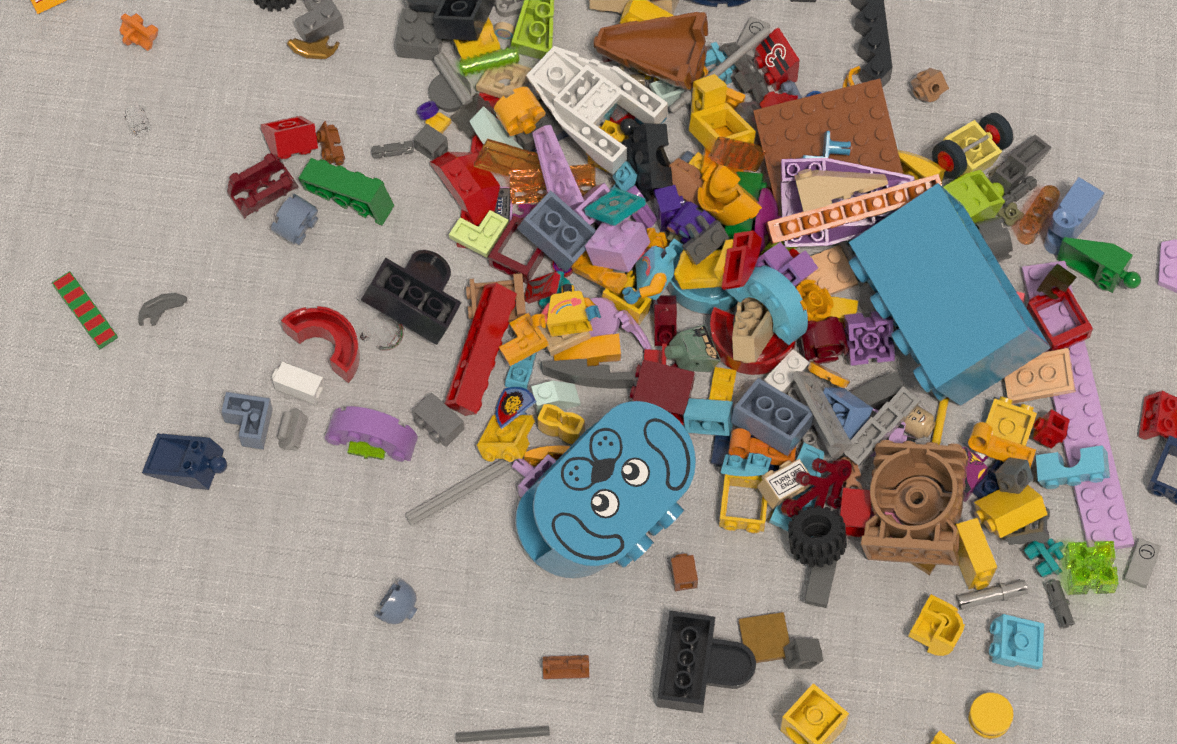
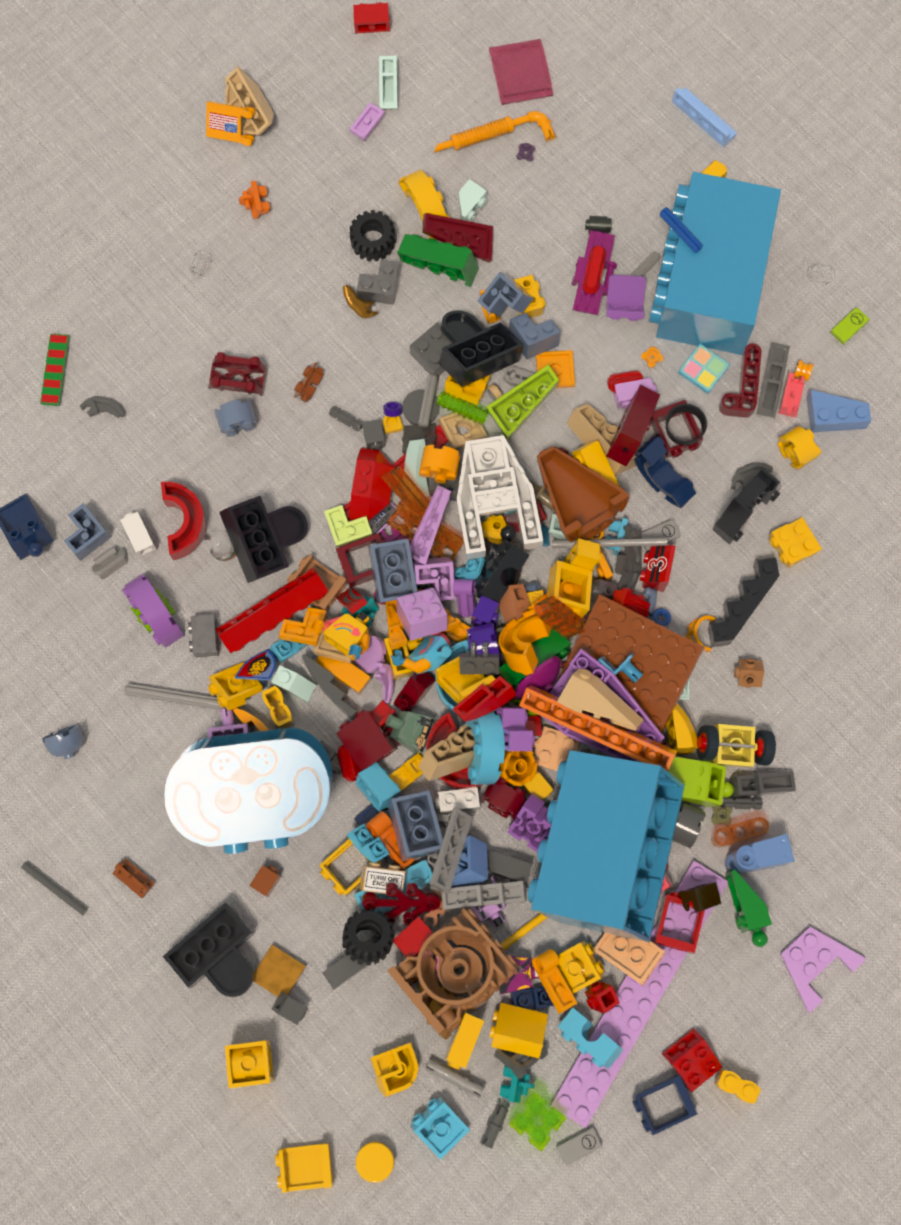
camera: 40 degrees right, 10 degrees up
(290, 136) = (285, 354): red slope -> none
(348, 189) = (289, 423): green wedge -> none
(615, 206) = (441, 586): teal piece -> none
(828, 374) = (486, 825): light orange tile -> none
(919, 423) = (516, 913): tan head -> none
(1014, 475) = (541, 1010): dark grey brick -> none

